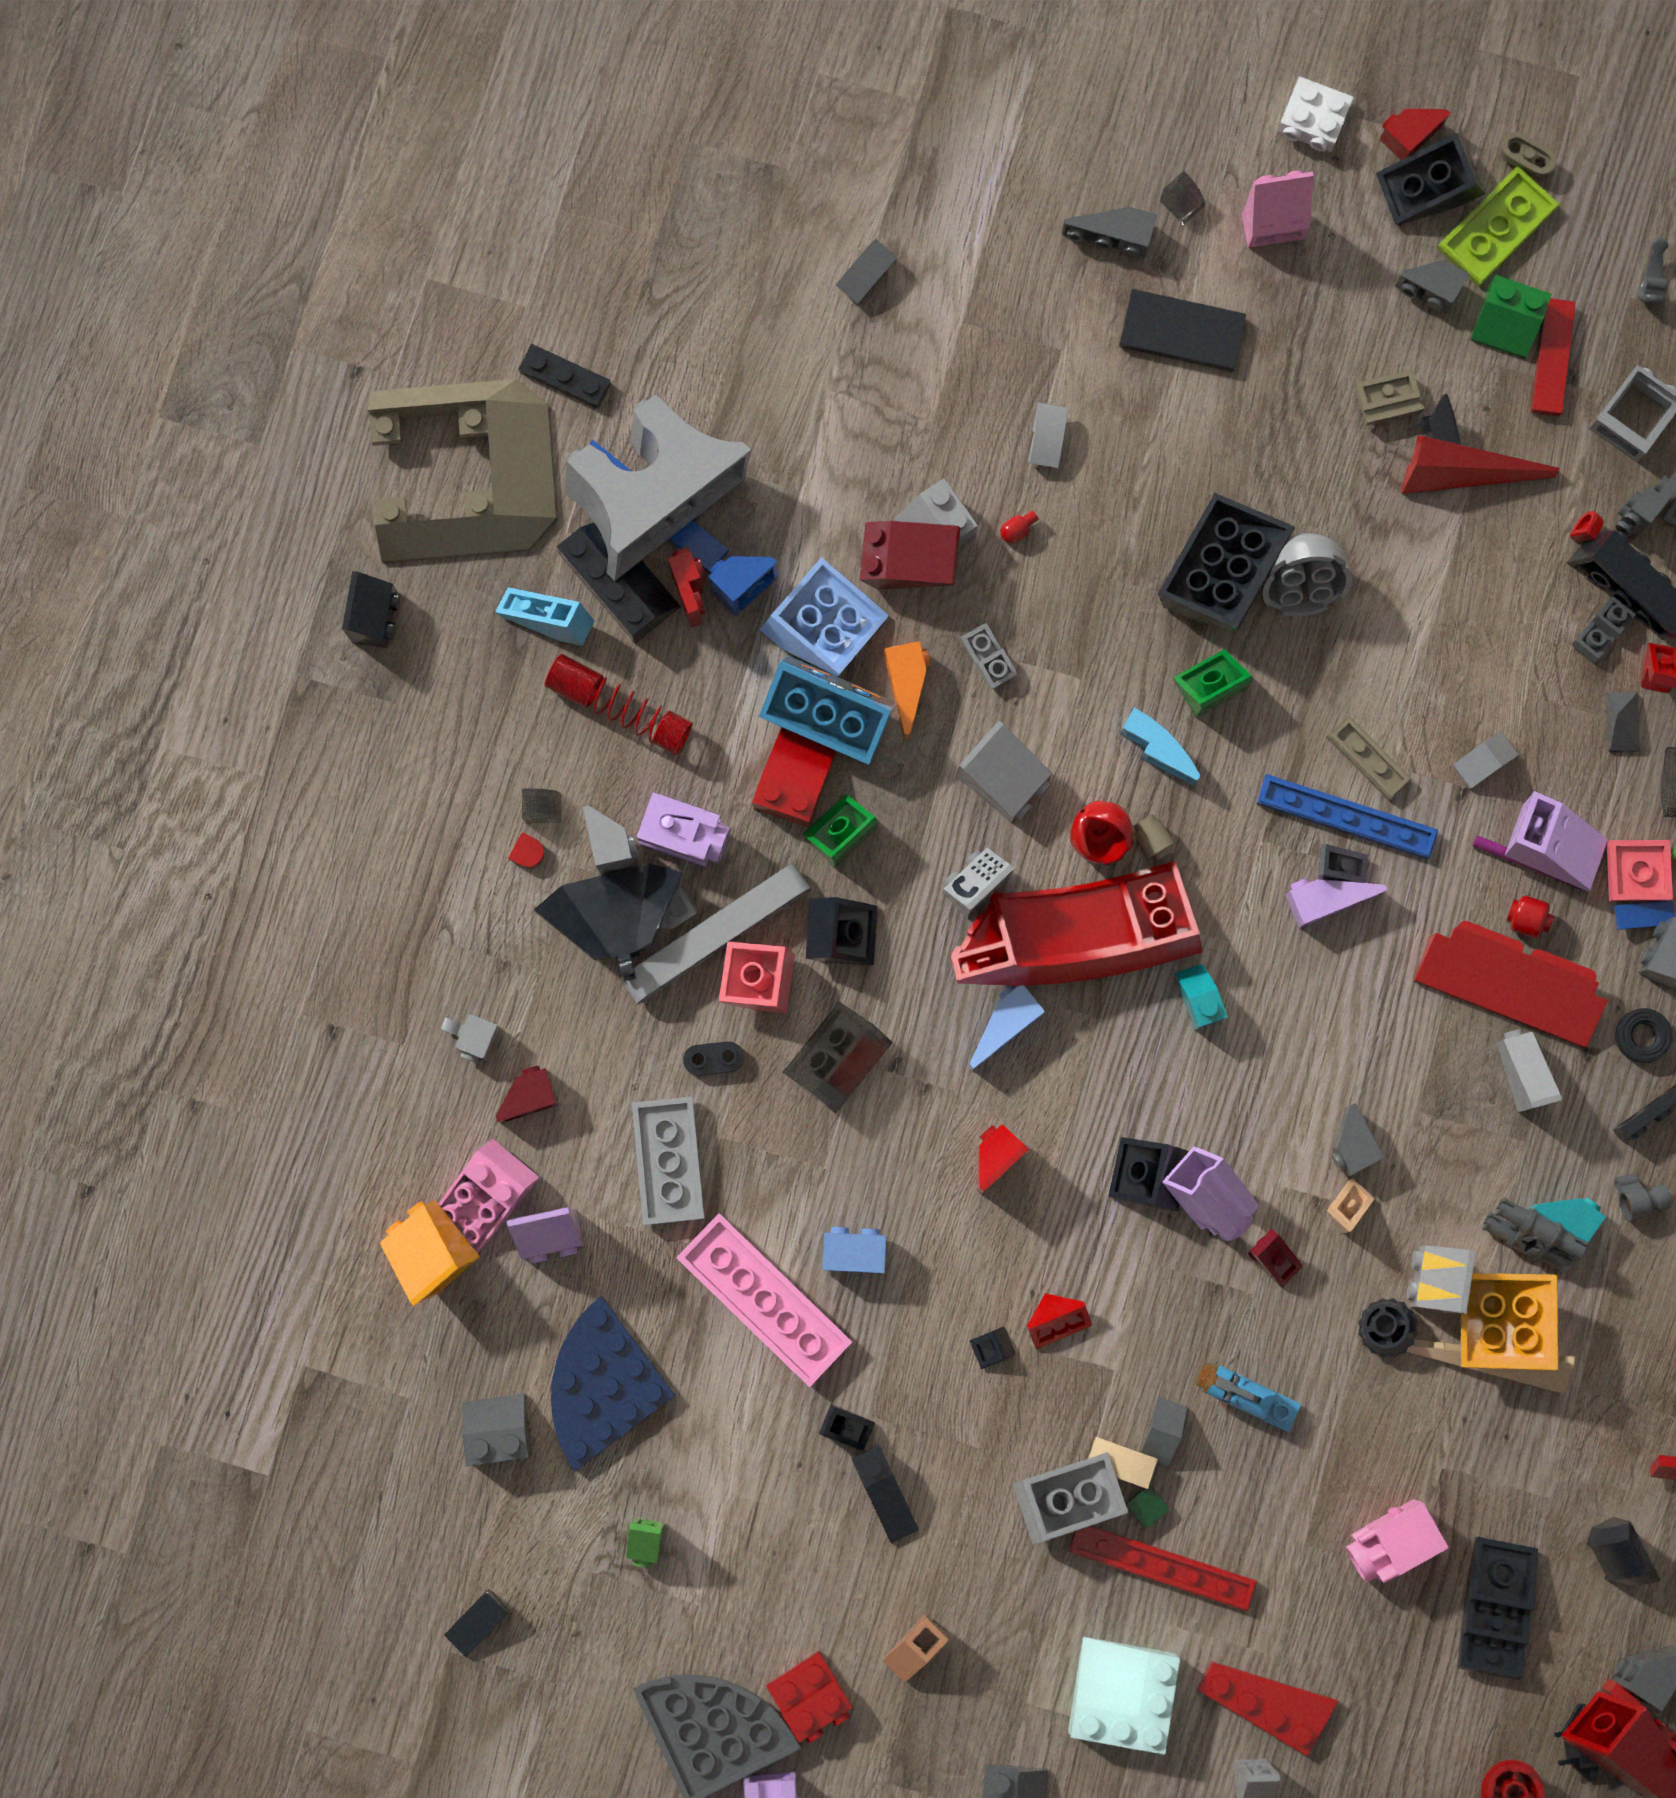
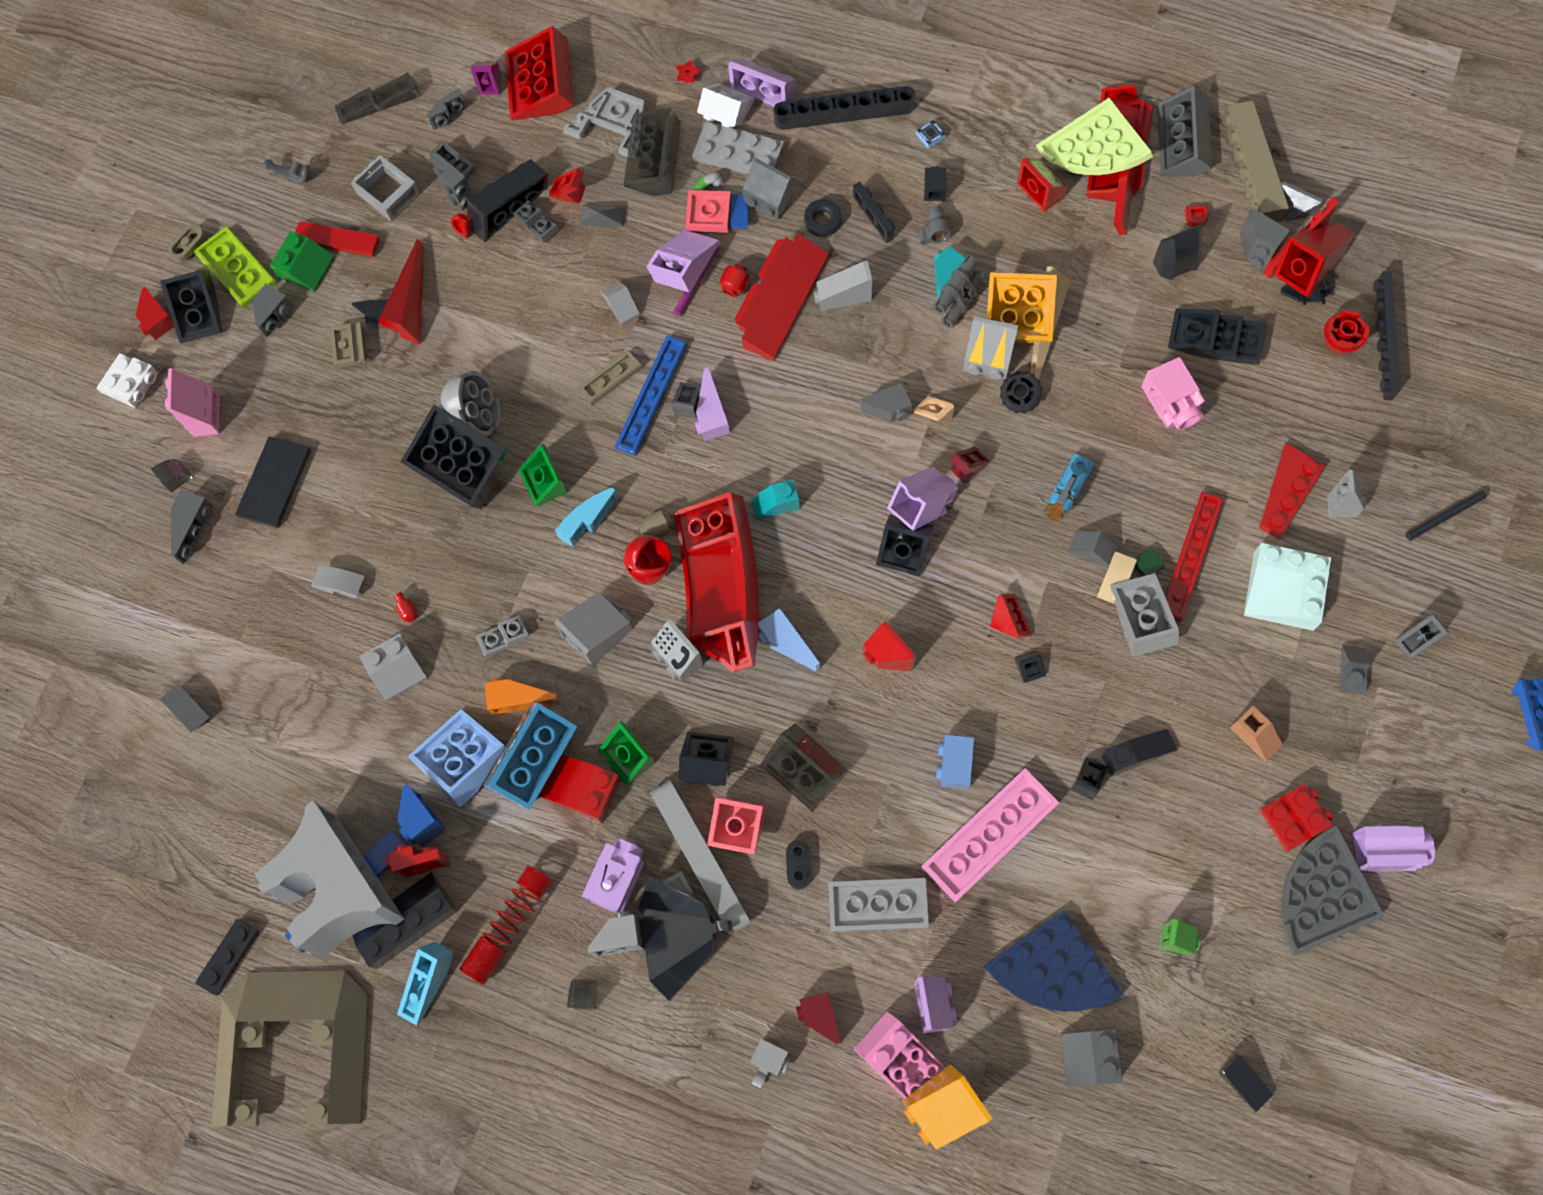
camera: 80 degrees left, 10 degrees down
(370, 610) = (401, 1132): black slope -> none
(527, 852) = (619, 1008): red tile -> none
(909, 555) = (415, 685): dark red slope -> none

